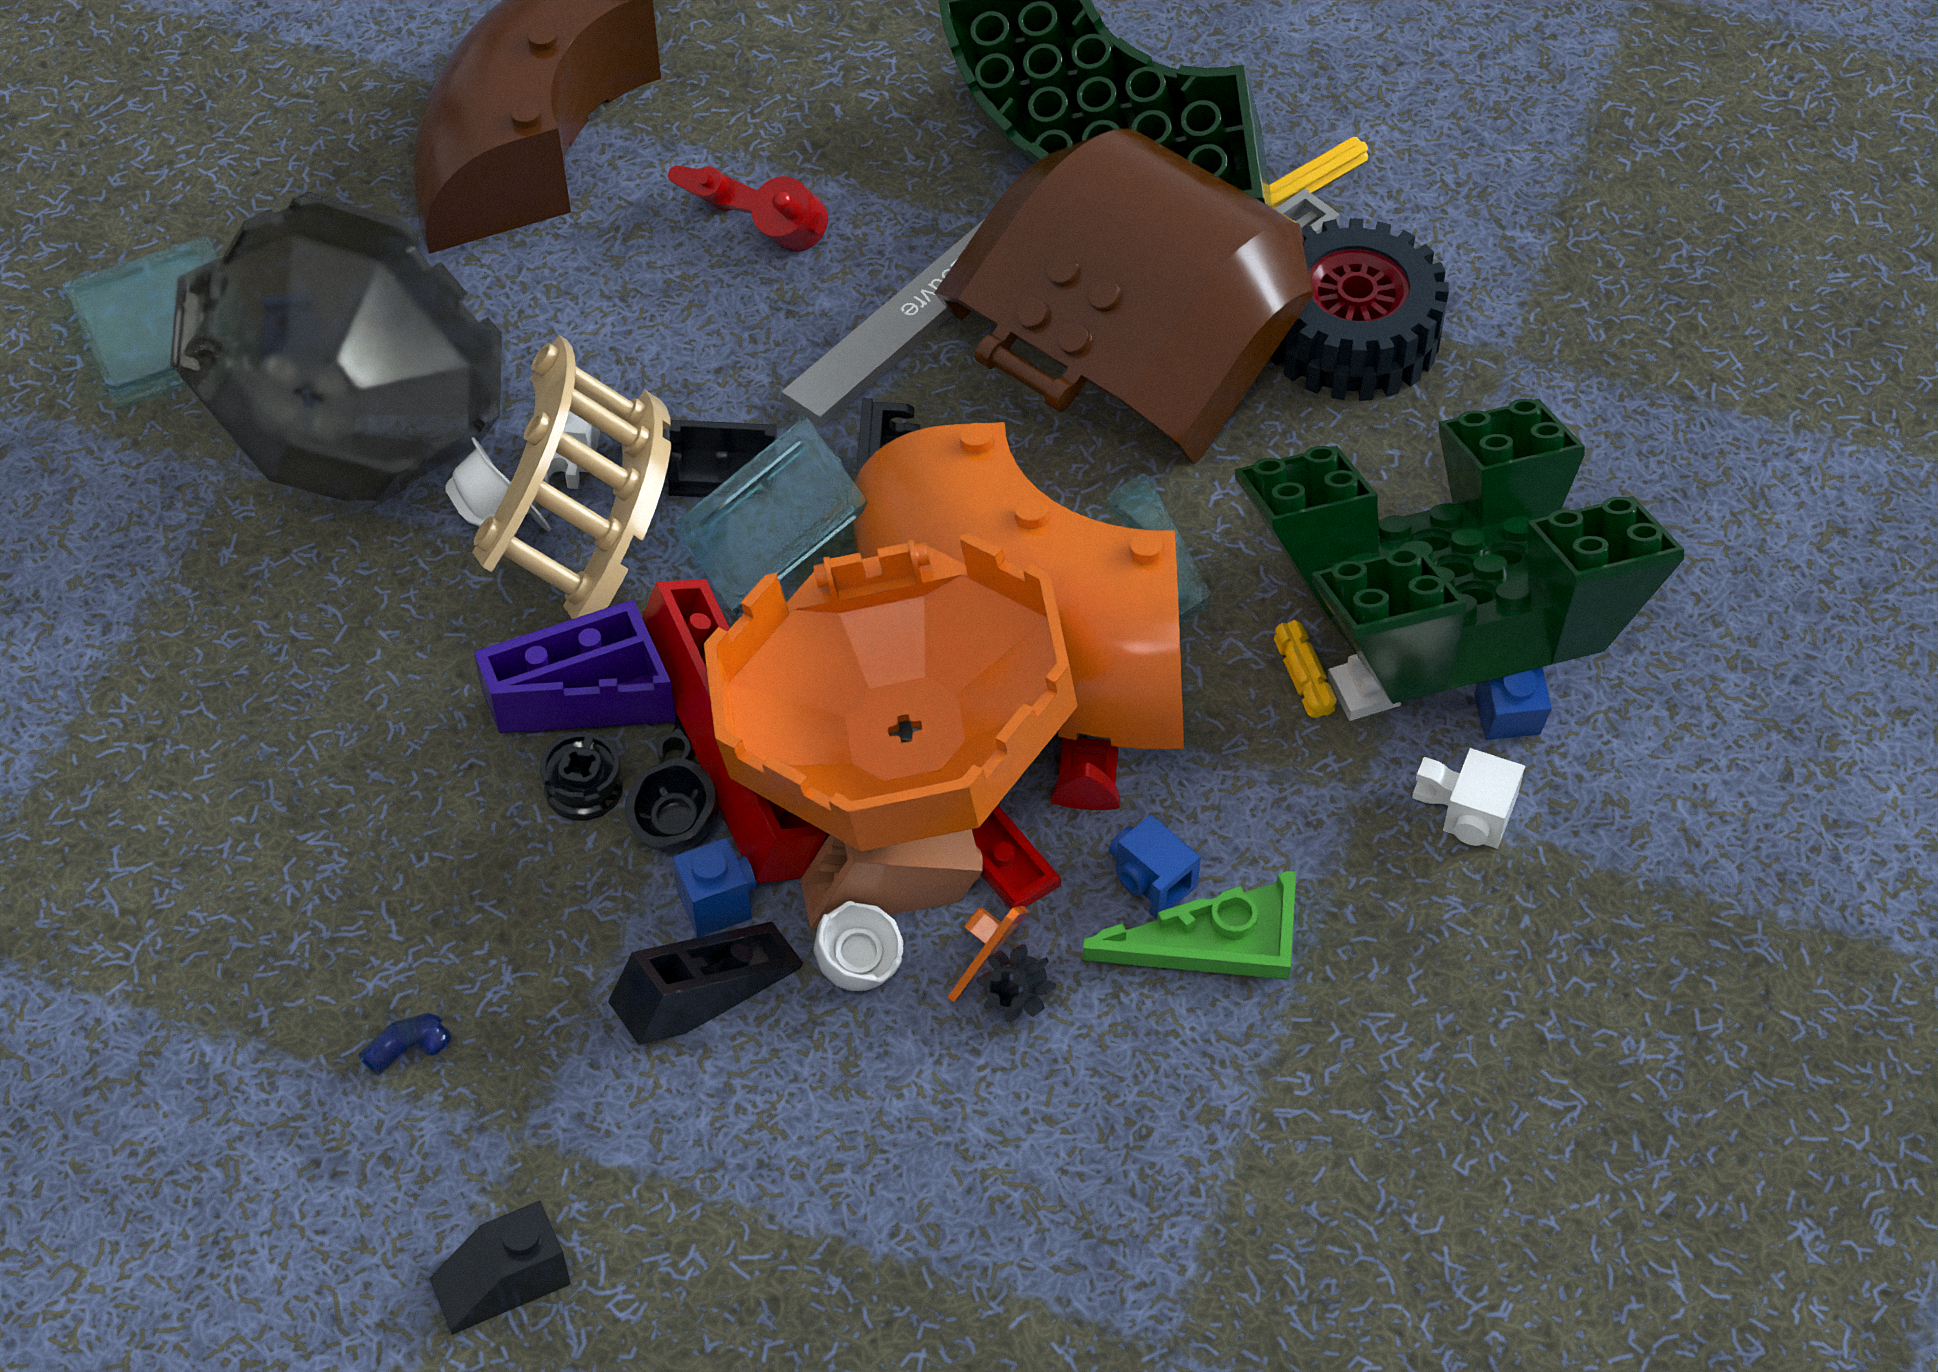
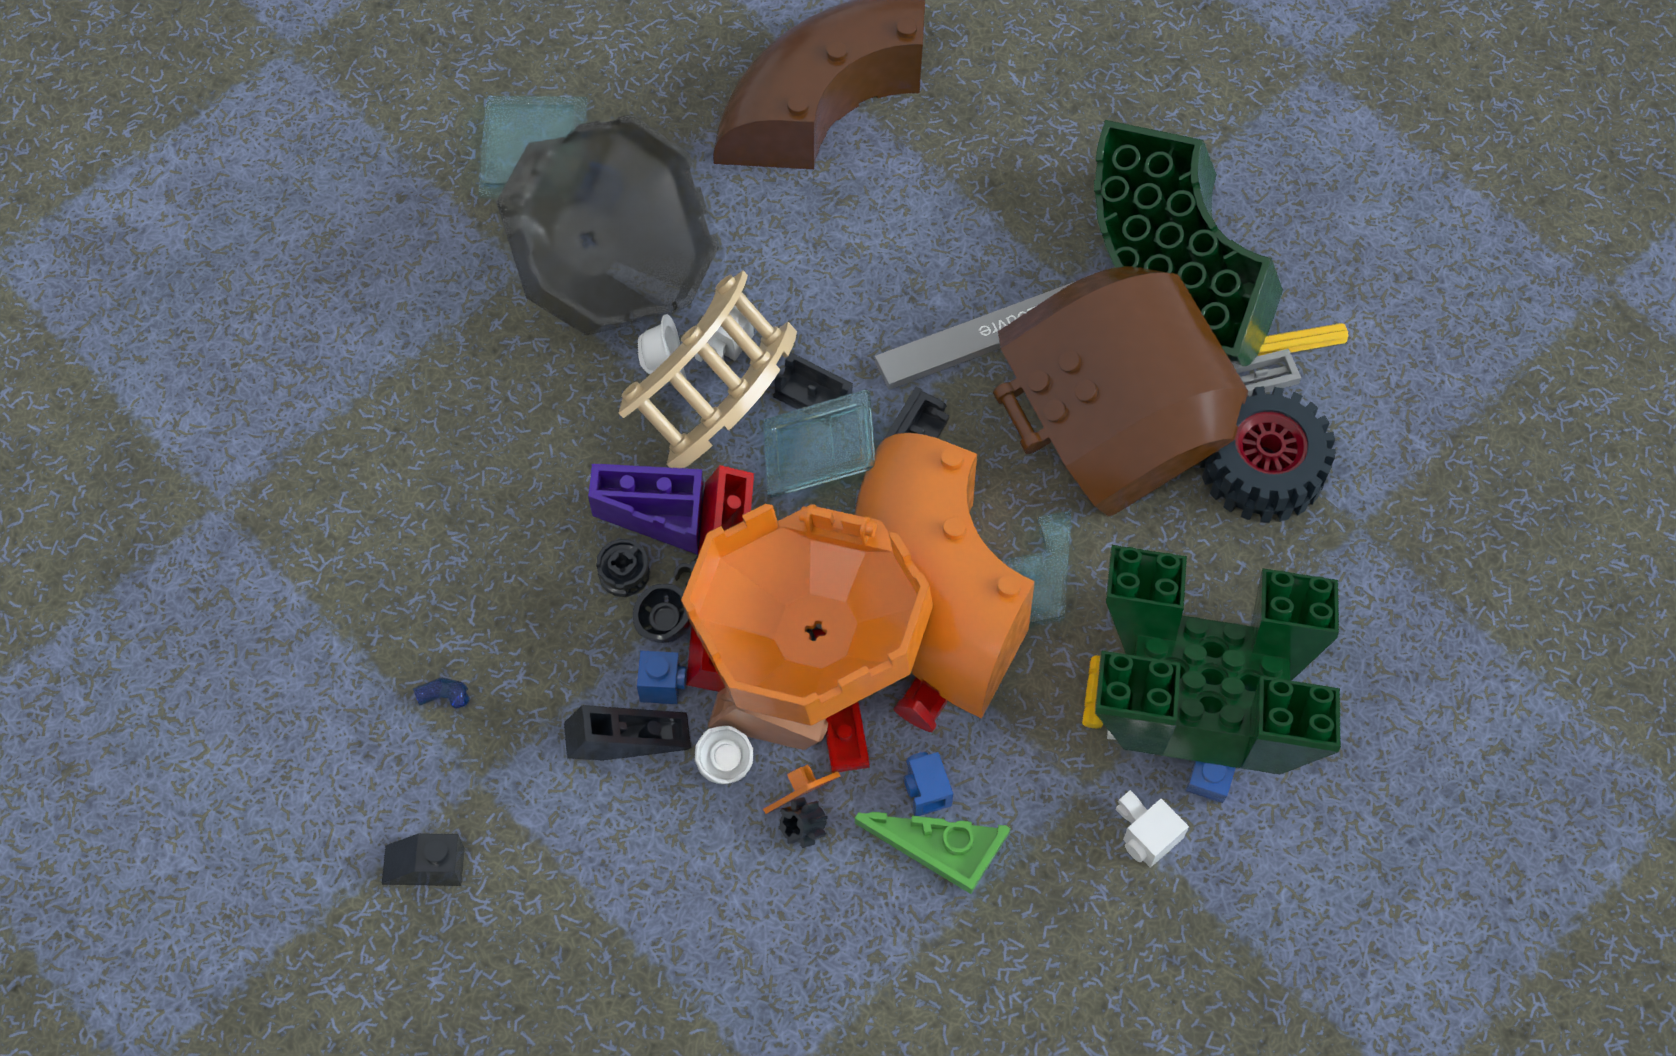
camera: 25 degrees right, 10 degrees up
(779, 208) = (936, 226): red piece -> none

